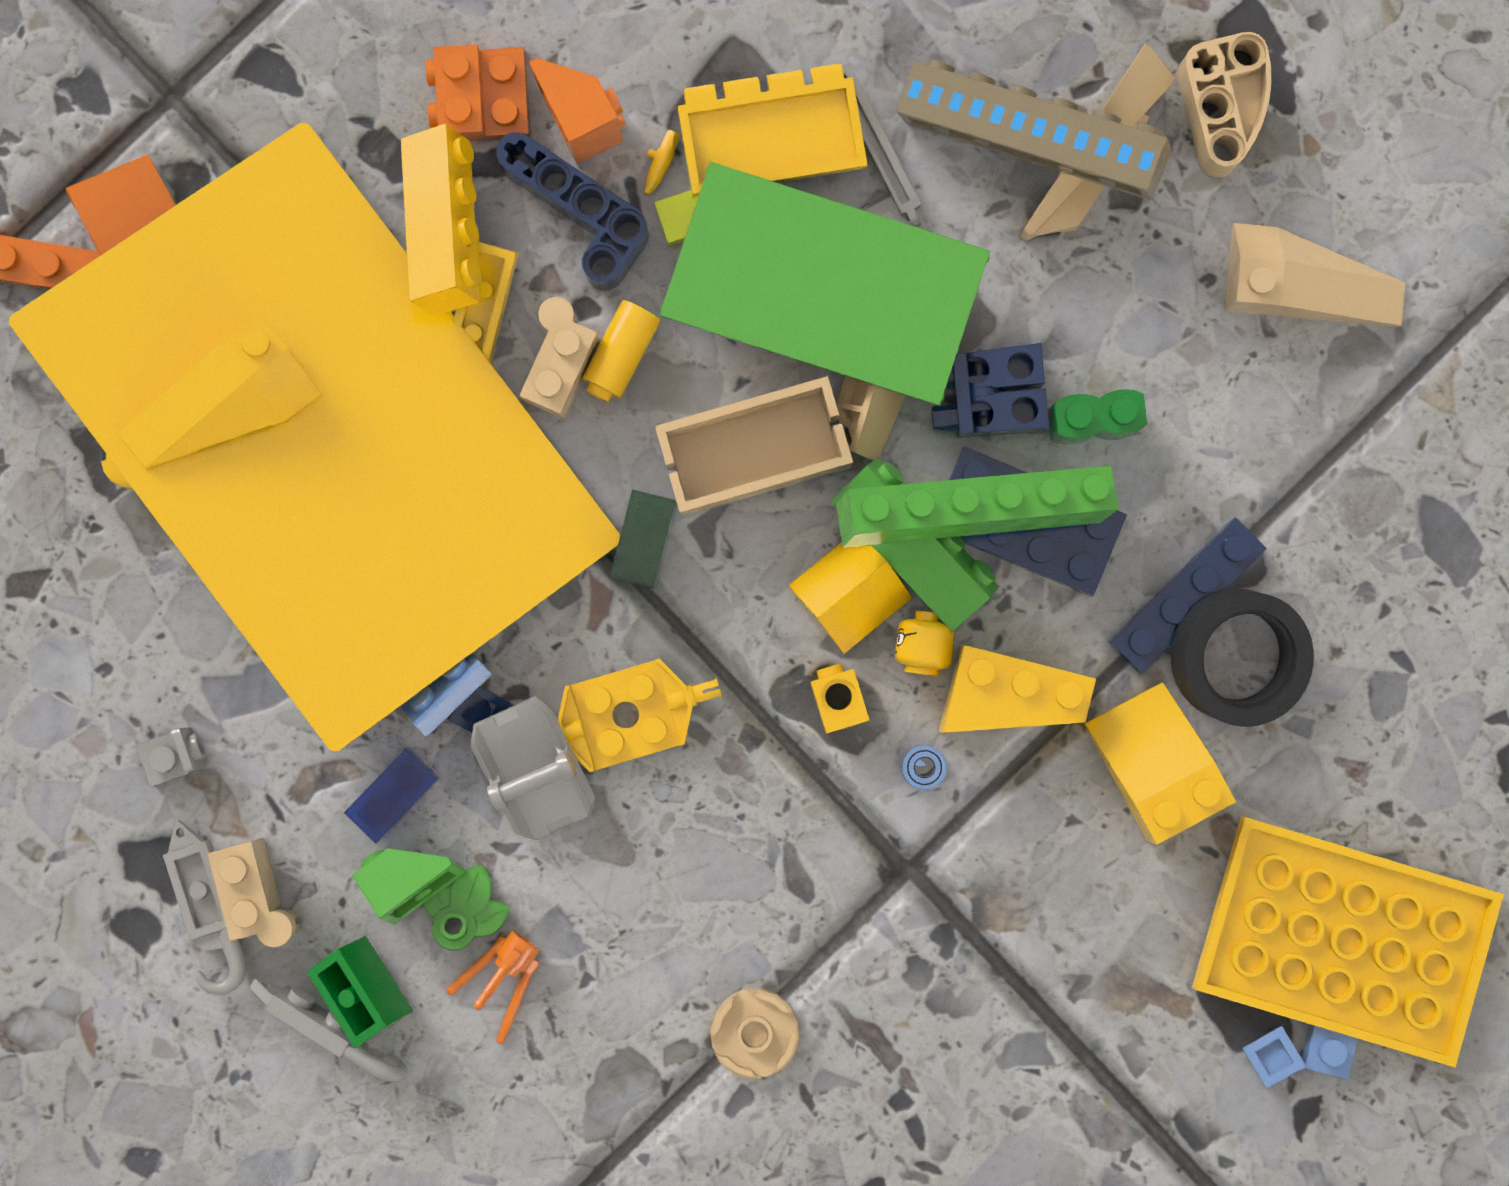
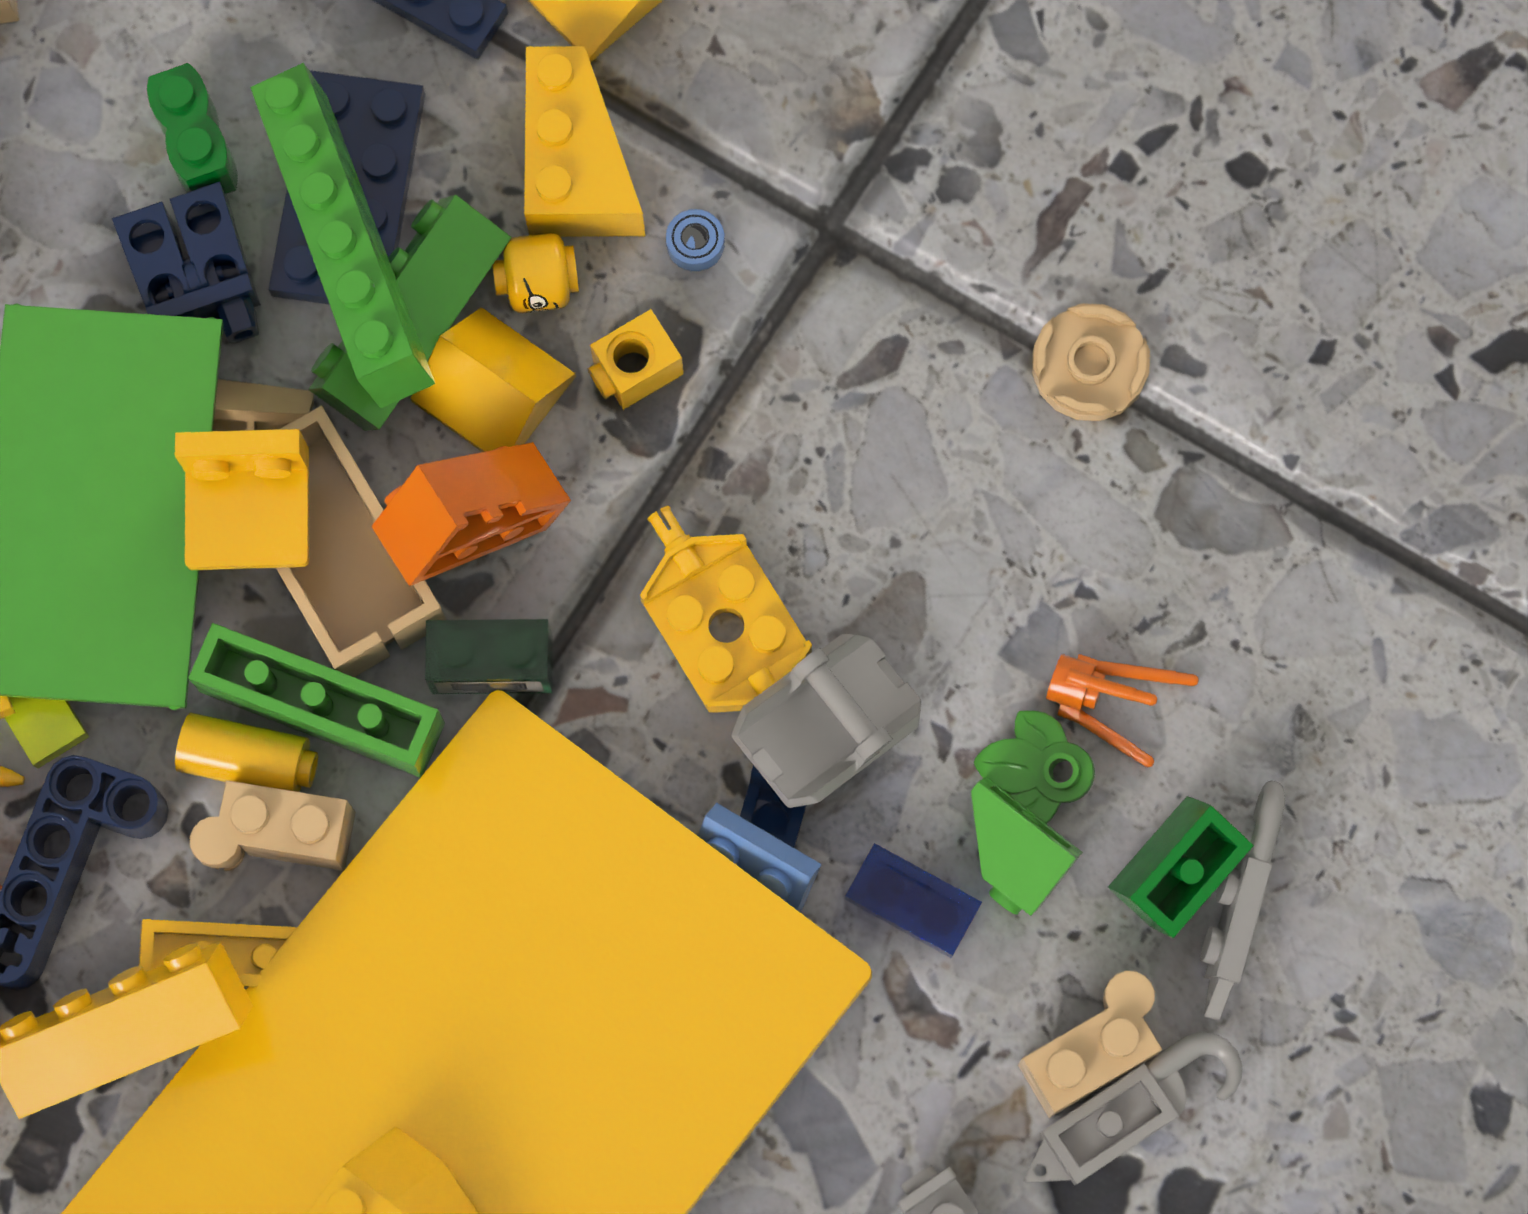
camera: 105 degrees left, 10 degrees down
(640, 408) = (317, 700): none -> bright green brick
(748, 550) = (468, 509): none -> orange wedge
(787, 389) = (245, 498): none -> yellow bracket

